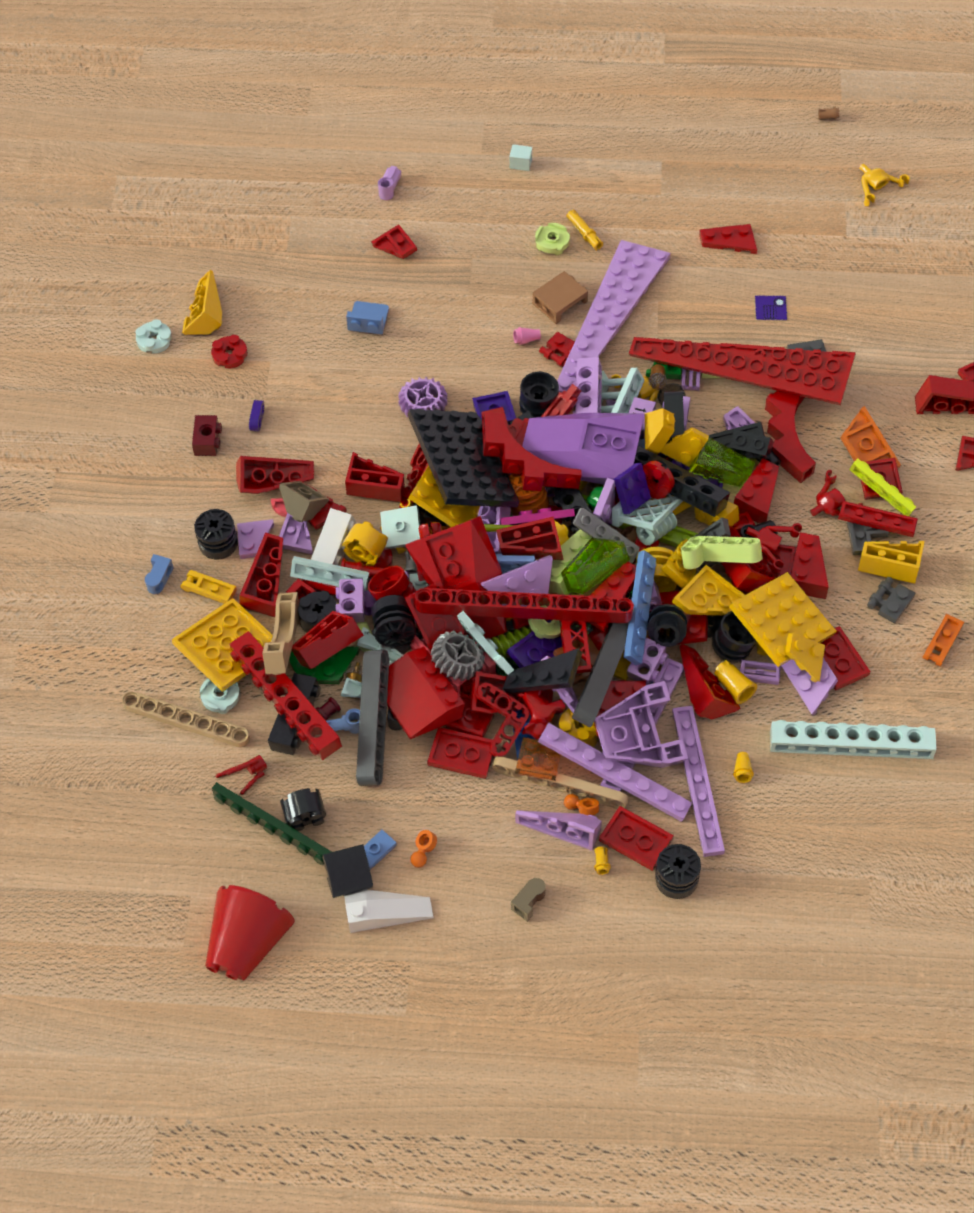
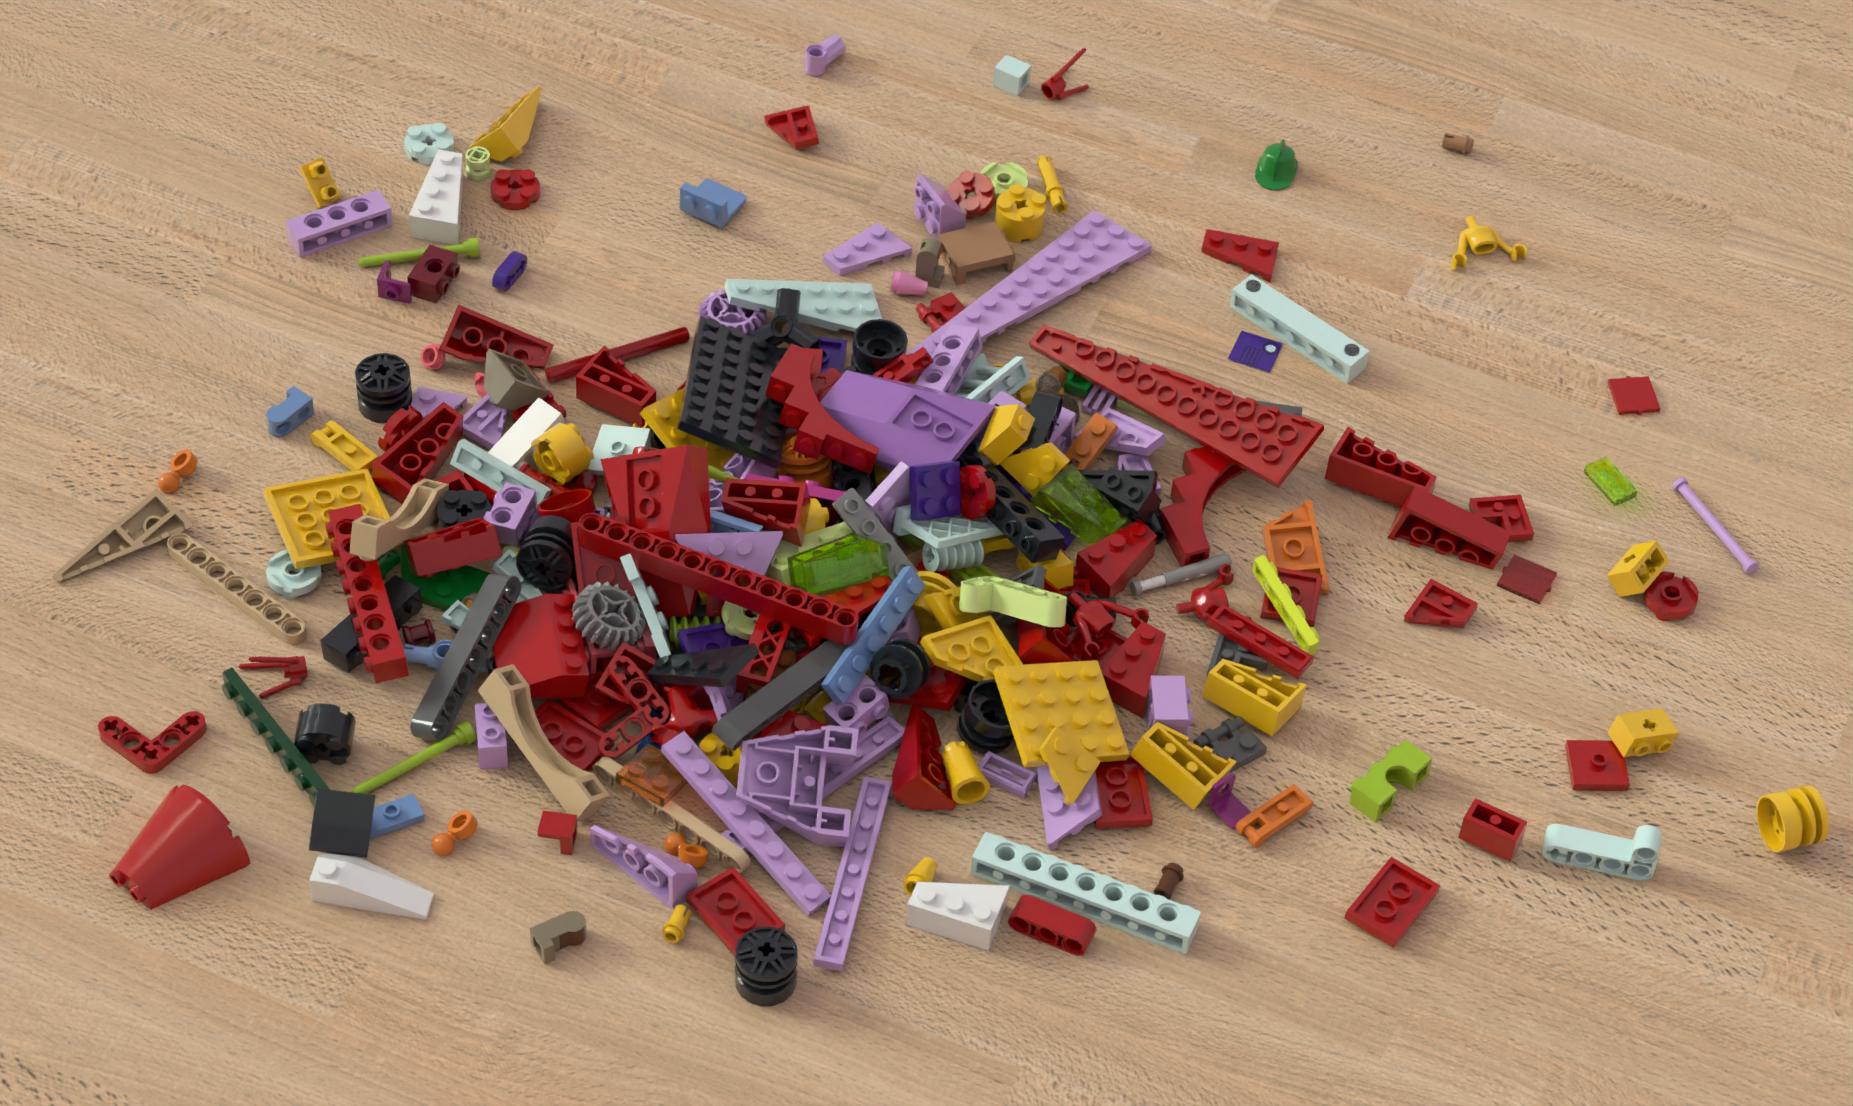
camera: 15 degrees right, 10 degrees down
(95, 392) = (319, 182): none -> yellow hips
(100, 694) = (142, 526): none -> tan wedge
(103, 639) = (181, 465): none -> orange plate
(122, 419) = (339, 223): none -> lavender brick
(183, 456) = (391, 288): none -> magenta bracket
(185, 381) = (438, 204): none -> white wedge
(189, 859) = (153, 748): none -> red beam
(196, 341) = (477, 163): none -> yellowish green wheel
(220, 407) = (469, 248): none -> lime piece
(231, 498) = (428, 355): none -> coral plate
(244, 562) = (398, 426): none -> red plate
(361, 450) = (621, 352): none -> red axle
(393, 773) = (461, 736): none -> lime piece
(414, 767) = (490, 738): none -> lavender brick
(423, 743) = (511, 702): none -> tan arch
(463, 384) = (787, 312): none -> black piece
(475, 370) = (821, 303): none -> light aqua wing
(485, 318) = (866, 248): none -> lavender wing
(492, 820) = (559, 827): none -> red panel
(521, 274) = (936, 207): none -> lavender slope
(535, 246) = (977, 183): none -> plate
(535, 315) = (927, 262): none -> dark tan leg
(551, 155) = (1055, 85): none -> red plant
(576, 258) = (1020, 213): none -> yellow brick
(703, 411) = (1091, 442): none -> orange plate
(717, 398) = (1132, 435): none -> lavender wing
(722, 169) = (1276, 167): none -> green piece
(780, 783) = (958, 911): none -> white wedge
(793, 282) = (1299, 329): none -> light aqua piece
(805, 484) = (1191, 571): none -> light grey piece
(842, 771) = (1052, 925): none -> red beam
(847, 593) = (1168, 703): none -> lavender brick
(873, 627) = (1180, 764): none -> yellow wedge
(892, 371) = (1373, 472): none -> red wedge
(900, 711) = (1171, 876): none -> reddish brown pin
(912, 644) = (1225, 803): none -> magenta bracket

